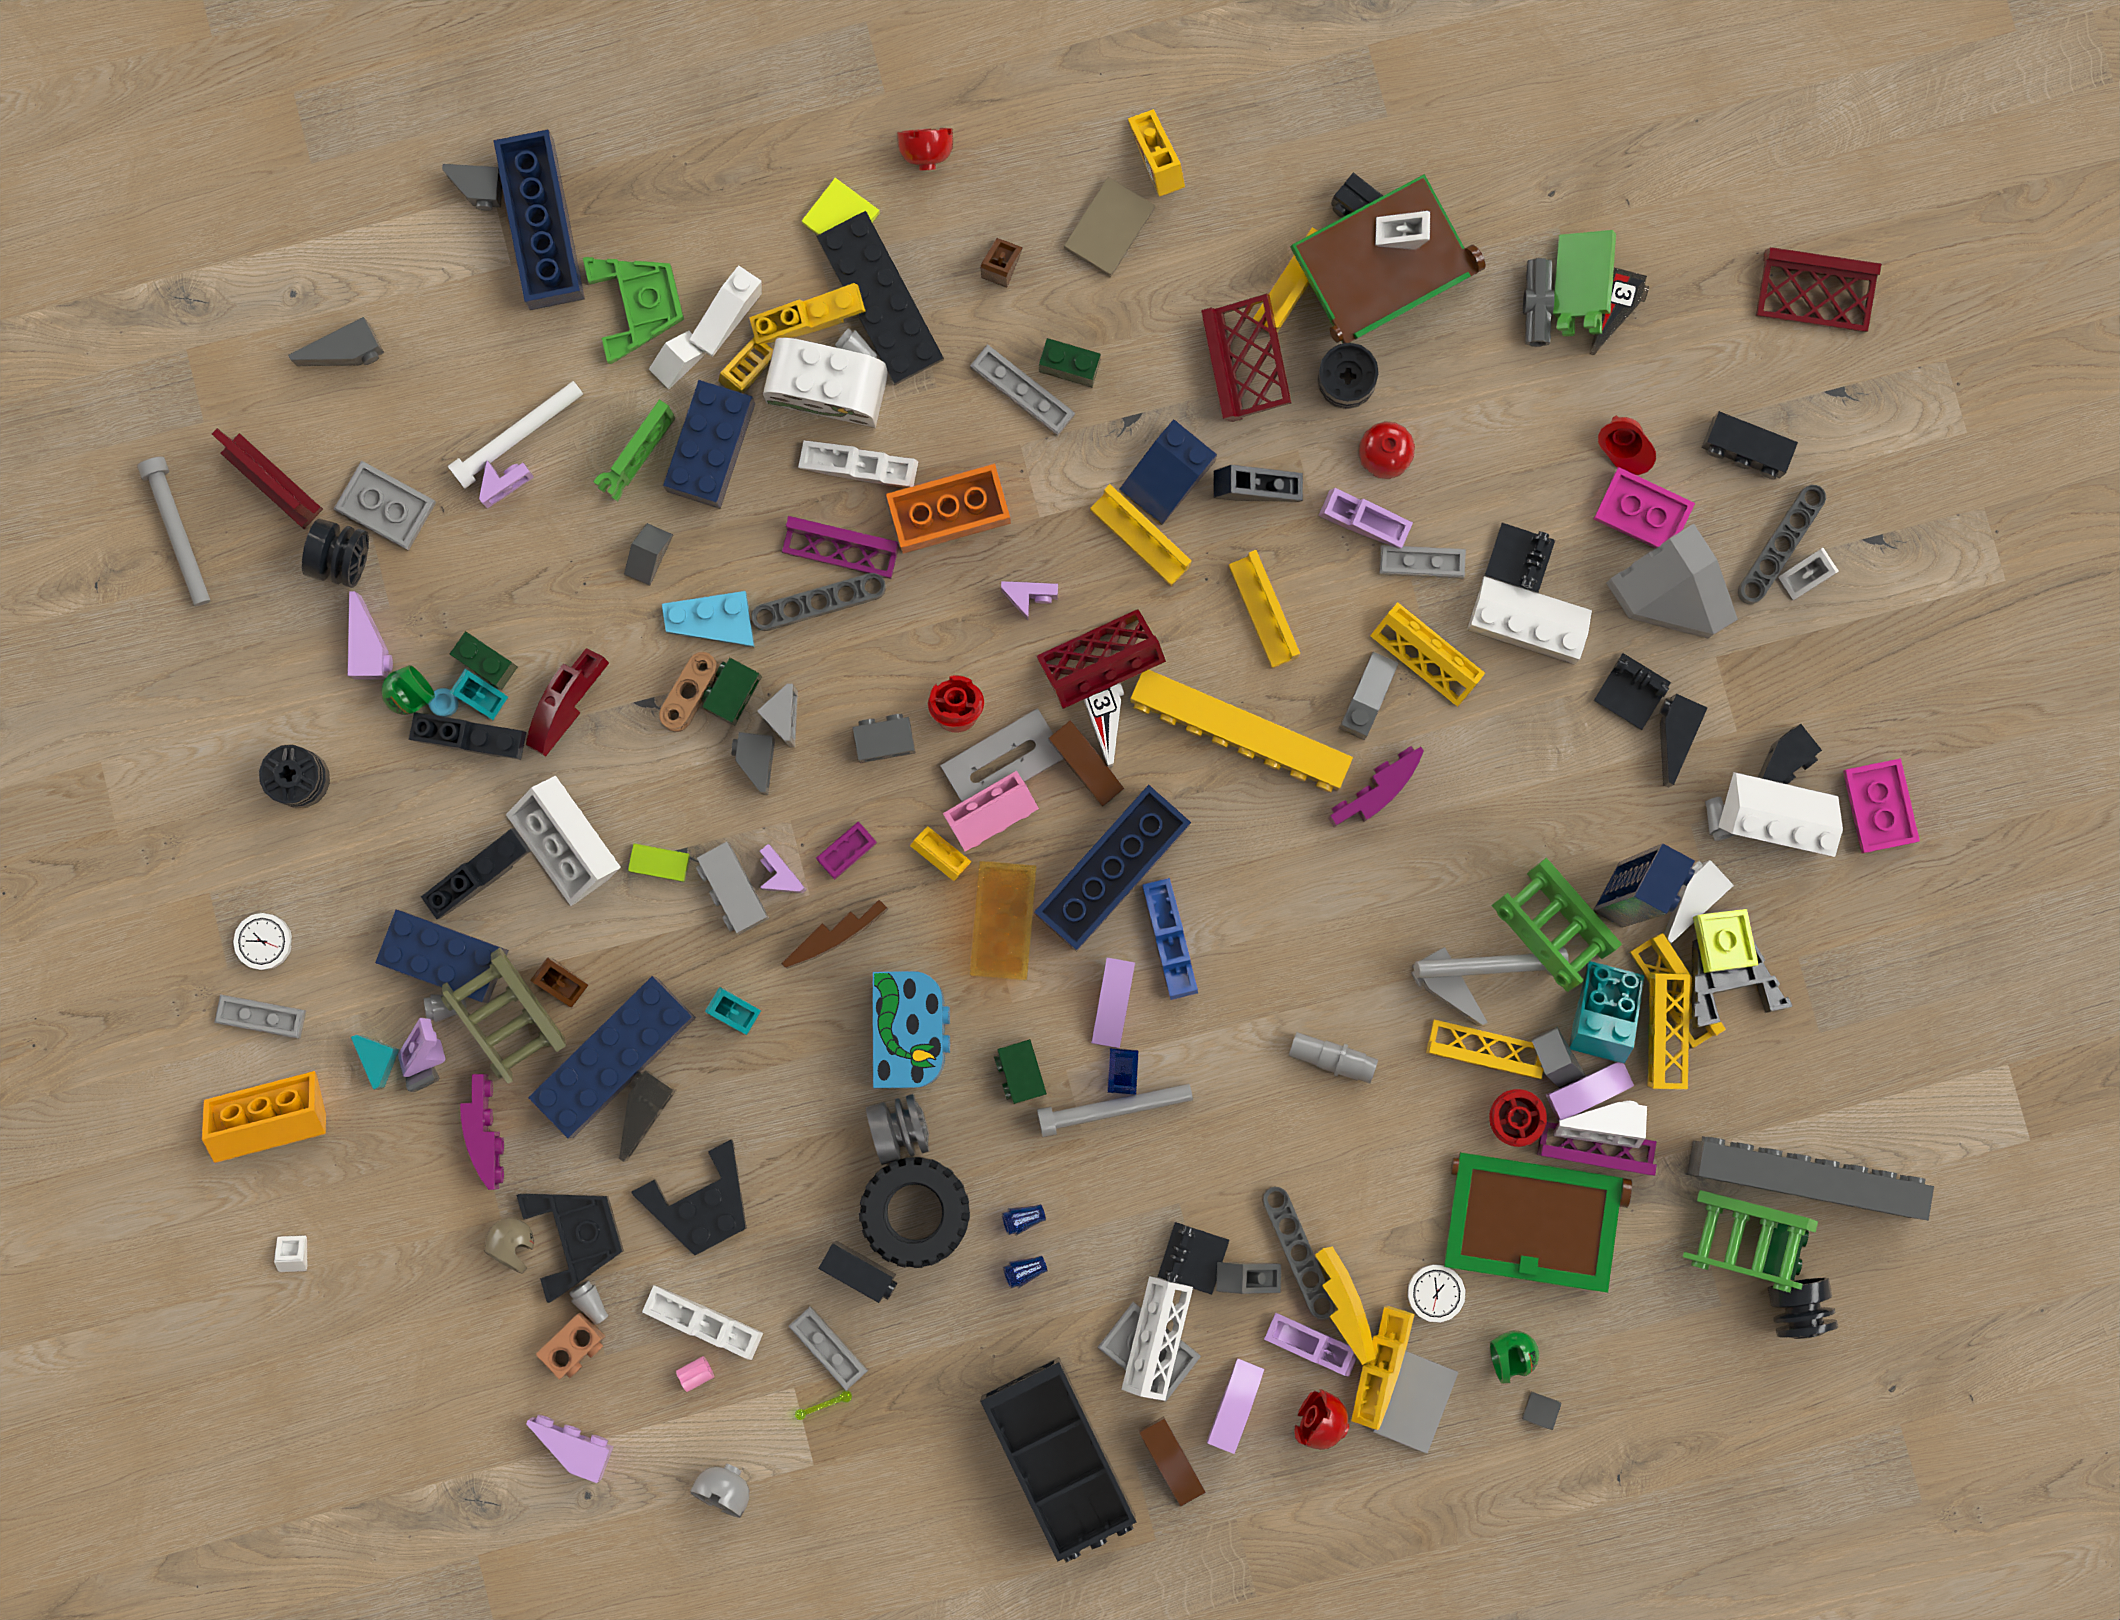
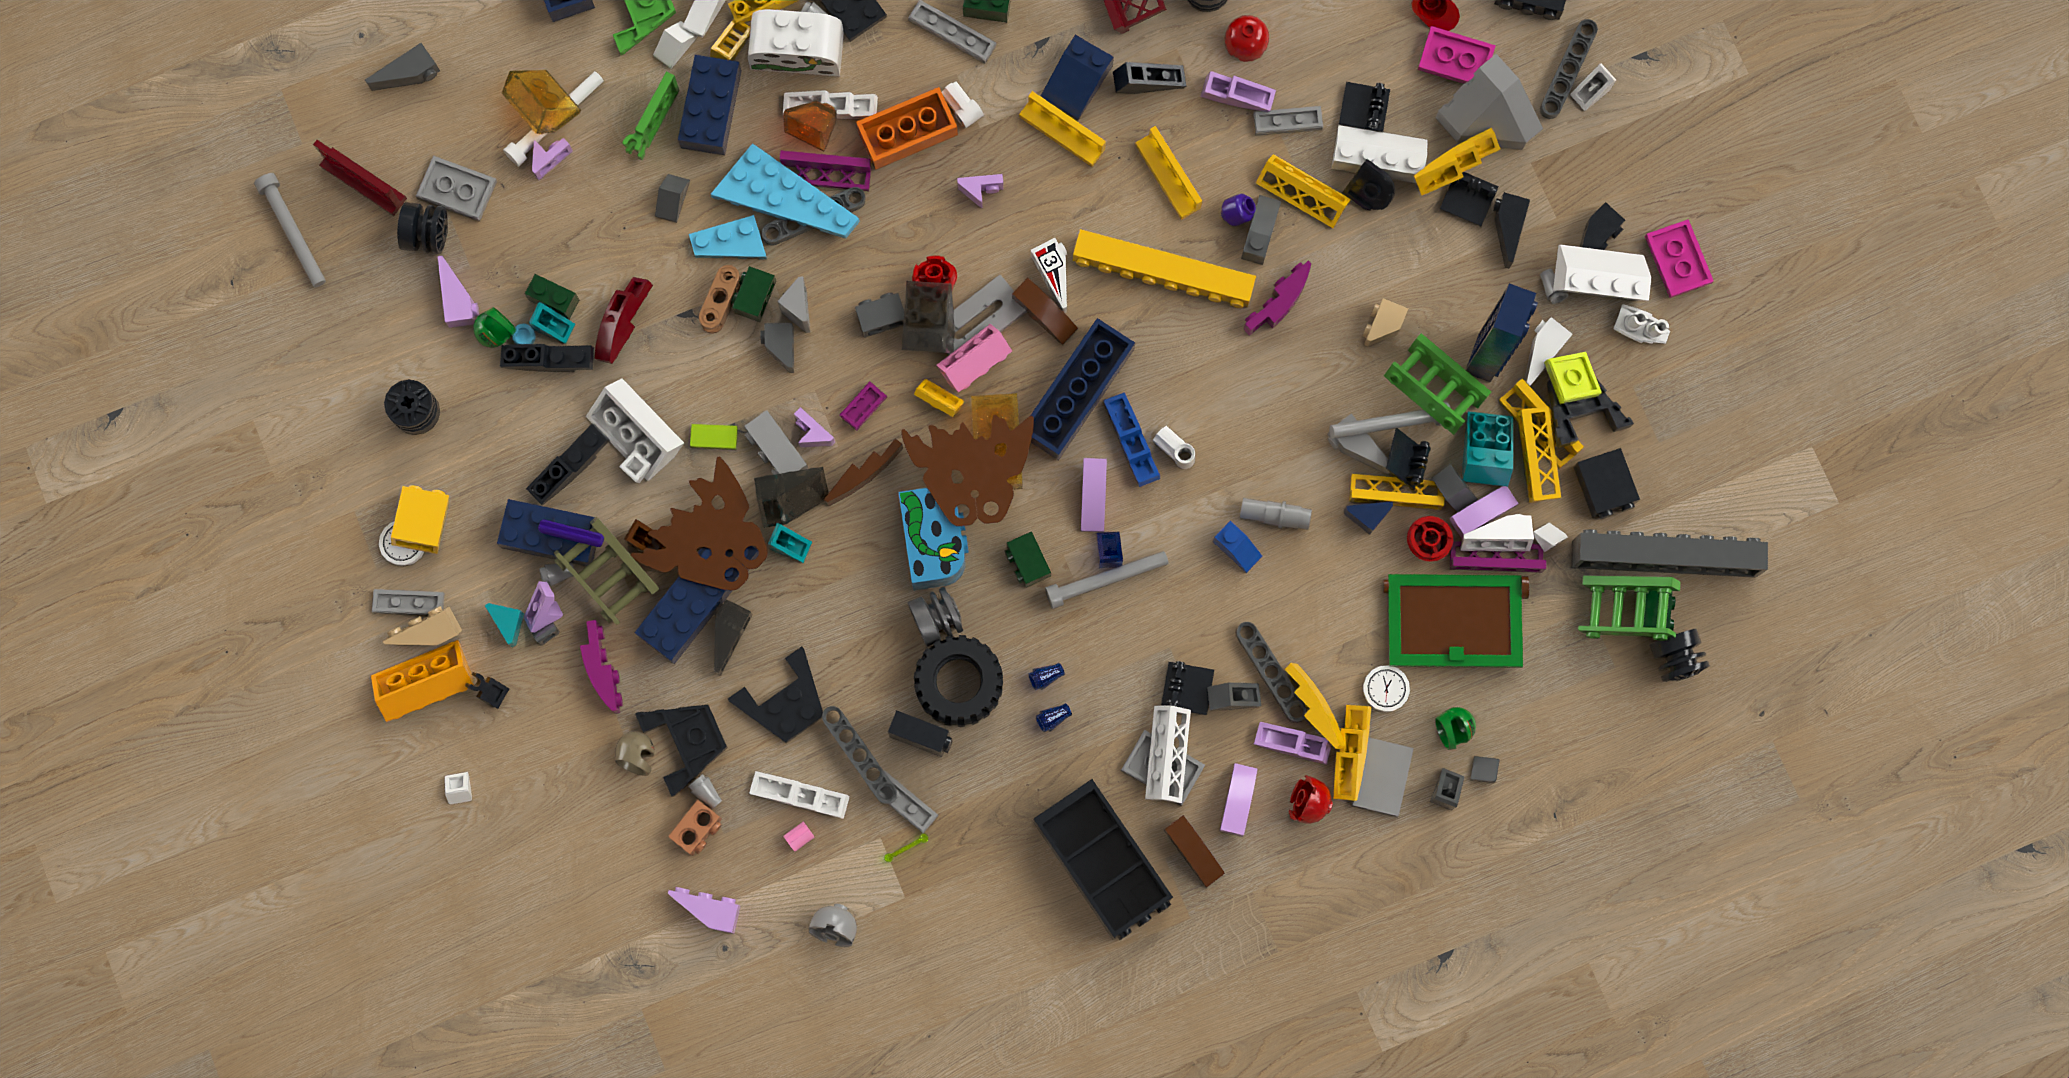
camera: 10 degrees left, 5 degrees down
(282, 1057) = (432, 630): none -> tan slope
(286, 917) = (420, 519): none -> yellow brick
(343, 1142) = (489, 690): none -> black plate
(465, 966) = (571, 533): none -> dark purple axle
(500, 410) = (539, 100): none -> clear yellow slope
(557, 888) = (635, 466): none -> white slope
(637, 982) = (710, 529): none -> reddish brown piece
(739, 952) = (789, 494): none -> clear smoke slope
(776, 564) = (777, 191): none -> medium azure wing
(781, 1300) = (857, 743): none -> dark grey beam
(831, 486) = (811, 123): none -> clear orange slope
(941, 755) = (928, 317): none -> clear smoke slope
(974, 949) = (976, 463): none -> reddish brown piece
(1024, 492) = (964, 109): none -> white piece
(1106, 669) = (1055, 231): dark red fence -> none
(1220, 954) = (1174, 446): none -> white piece
(1280, 1092) = (1237, 546): none -> blue slope
(1343, 668) = (1238, 209): none -> dark purple head
(1447, 1076) = (1368, 515): none -> dark blue slope
(1493, 1429) = (1447, 789): none -> dark grey slope
(1504, 1014) = (1408, 459): none -> black hinge
(1506, 835) = (1386, 323): none -> tan slope
(1512, 664) = (1370, 187): none -> black tile
(1628, 644) = (1455, 161): none -> yellow slope
(1665, 1133) = (1549, 536): none -> white slope
(1747, 1078) = (1607, 483): none -> black brick
(1820, 884) = (1641, 326): none -> white connector

